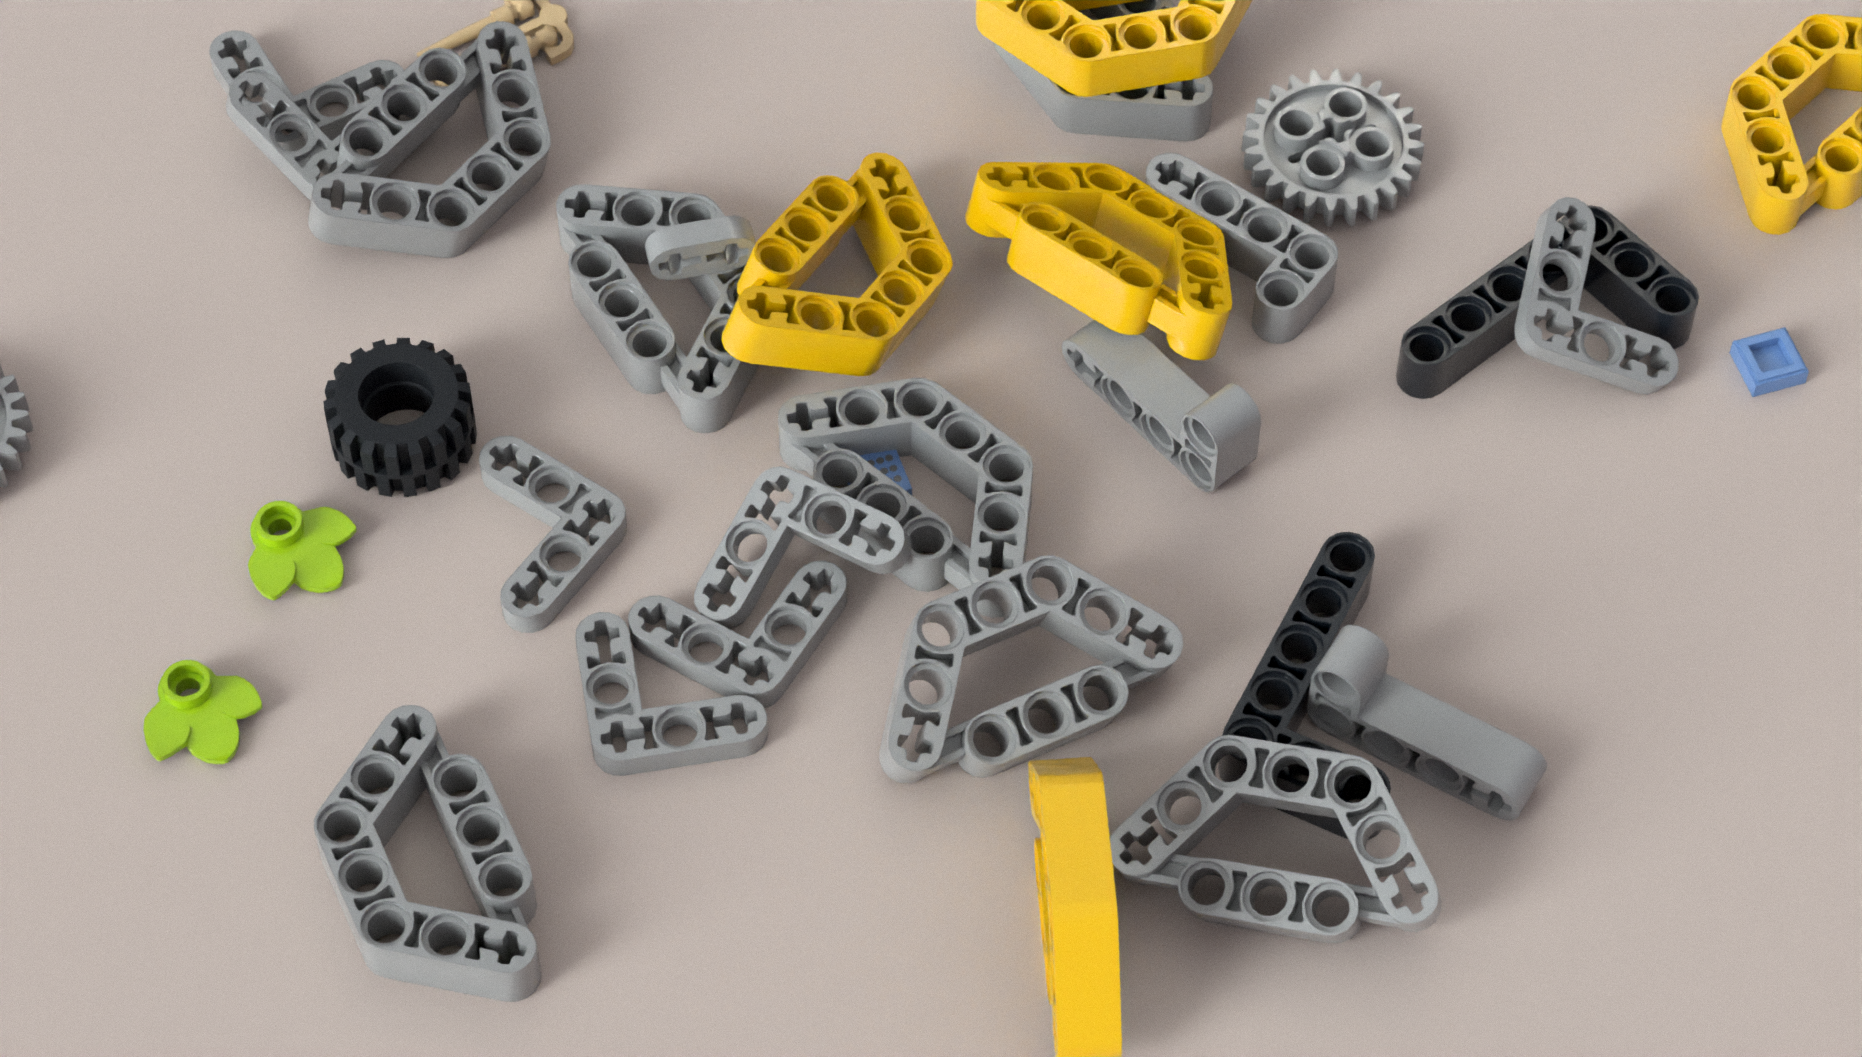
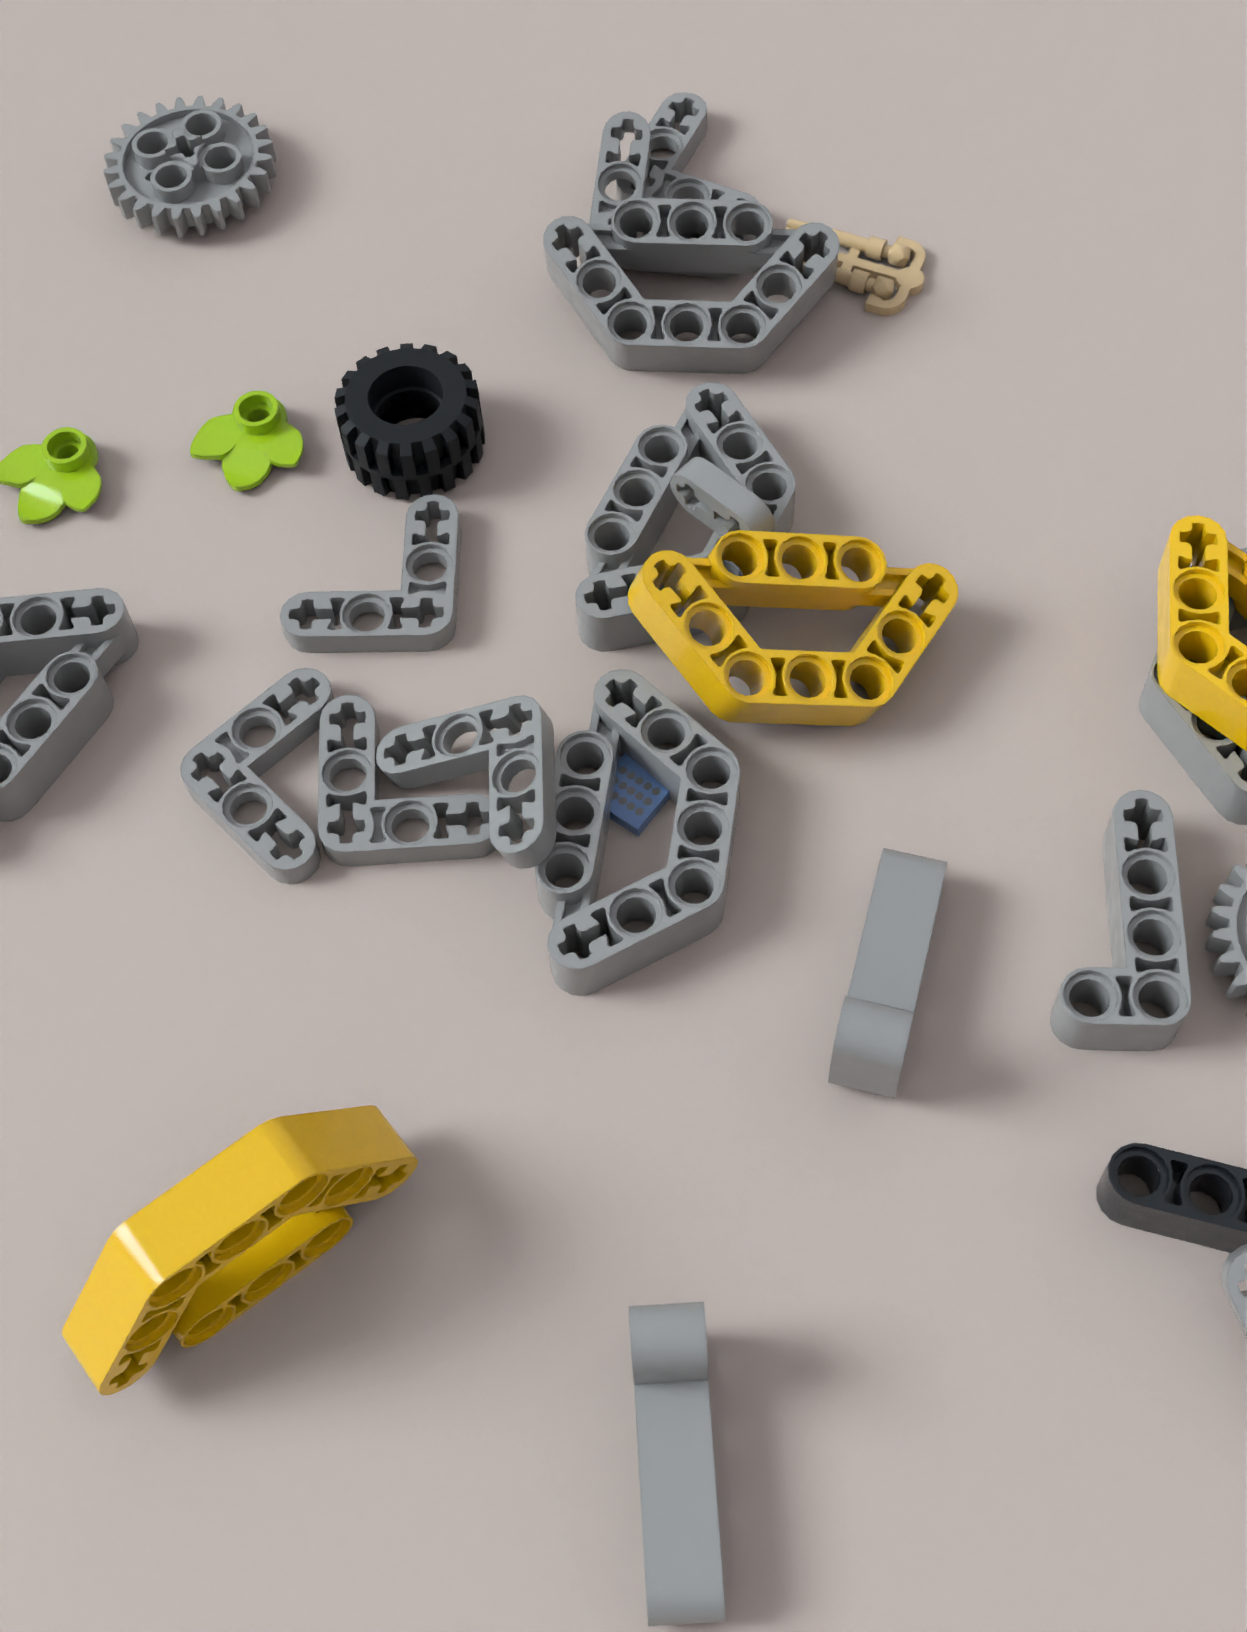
camera: 60 degrees right, 5 degrees up
(1019, 742) = (420, 1064): light grey piece -> none
(1109, 248) = (1009, 727): yellow piece -> none
(1257, 786) = (426, 1518): light grey piece -> none
(1288, 683) = (641, 1271): black beam -> none

